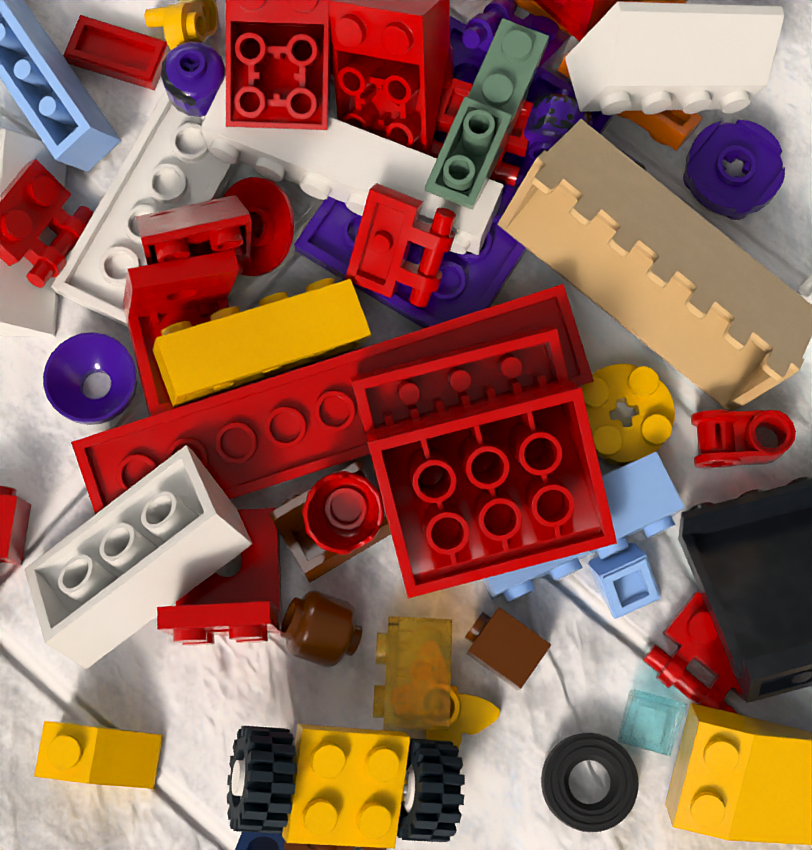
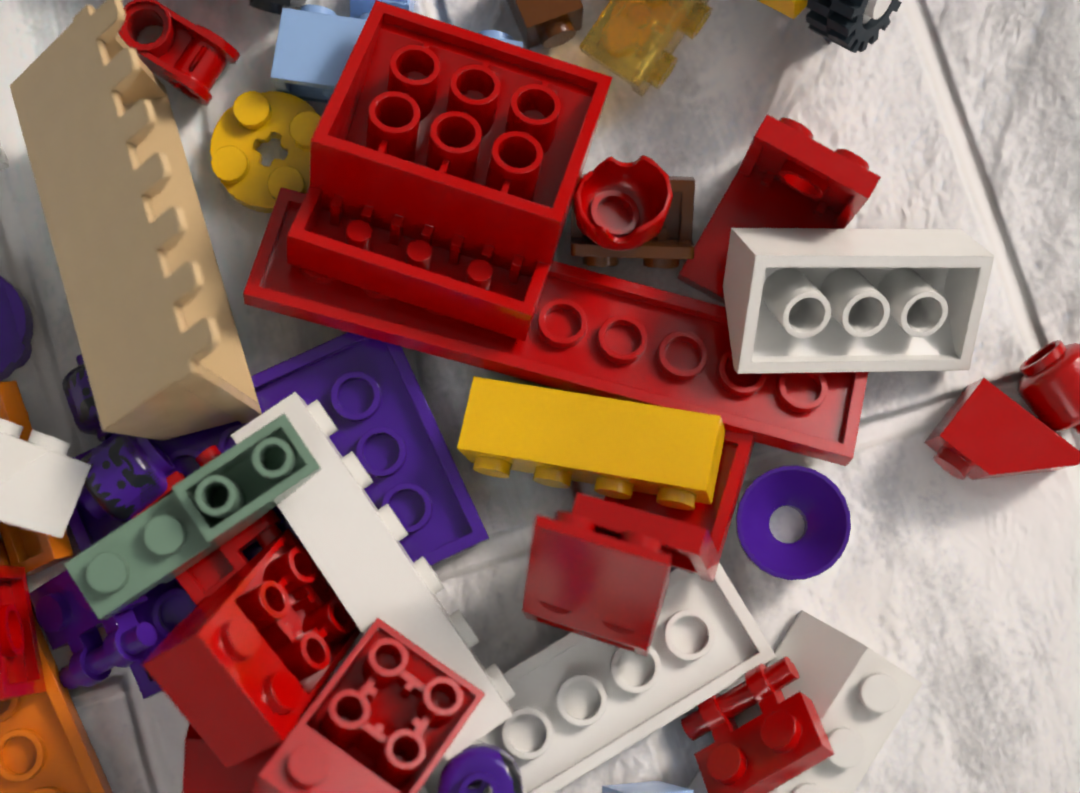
camera: 150 degrees left, 5 degrees up
(98, 755) = (995, 143): yellow slope -> none
(271, 223) = (490, 605): red dish -> none
(320, 628) = (709, 125): reddish brown head -> none
(384, 242) = (392, 458): red plate -> none

